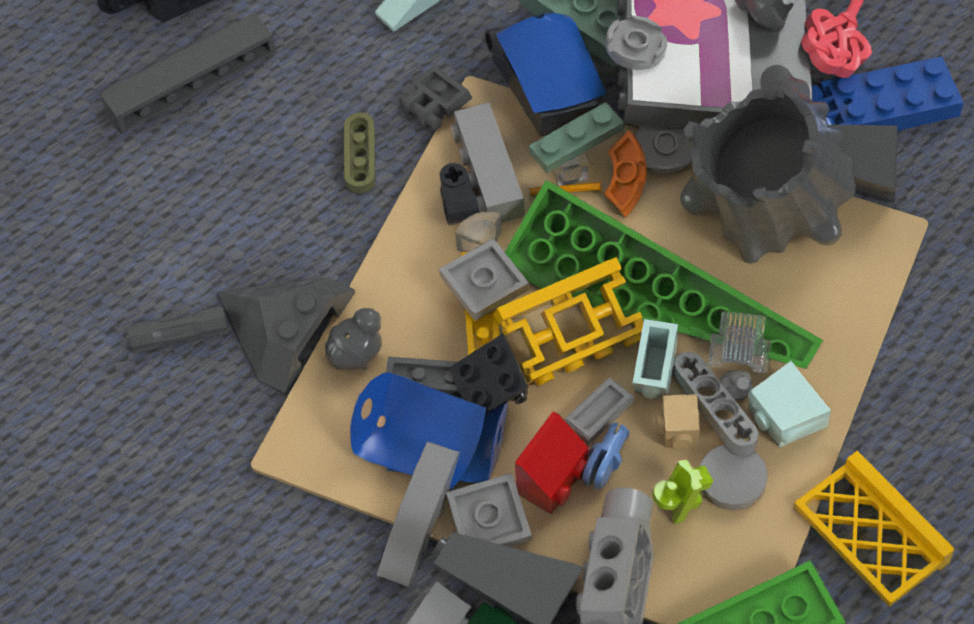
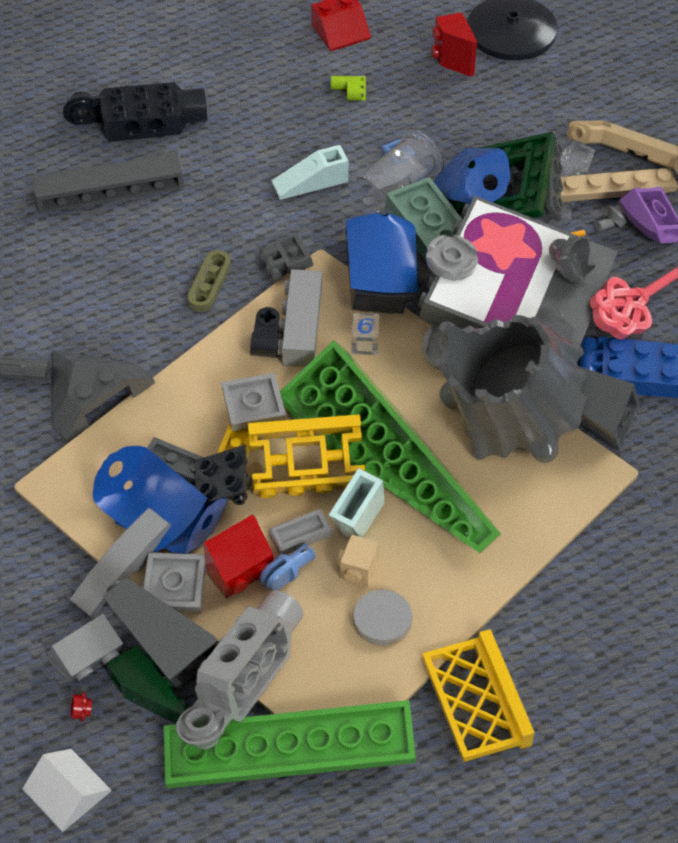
camera: 15 degrees right, 5 degrees down
(362, 344) = (134, 417): dark grey piece -> none
(477, 230) = (270, 362): clear brick -> none
(573, 188) = (369, 359): light orange piece -> none
(576, 137) = (376, 317): sand green plate -> none
(628, 173) = (408, 358): orange tile -> none
(682, 490) = (332, 612): lime hips -> none
(718, 401) = (394, 555): light grey beam -> none
(737, 383) = (418, 547): light grey plate -> none
(740, 342) = (432, 513): clear piece -> none
(788, 406) = (451, 577): light aqua torso -> none

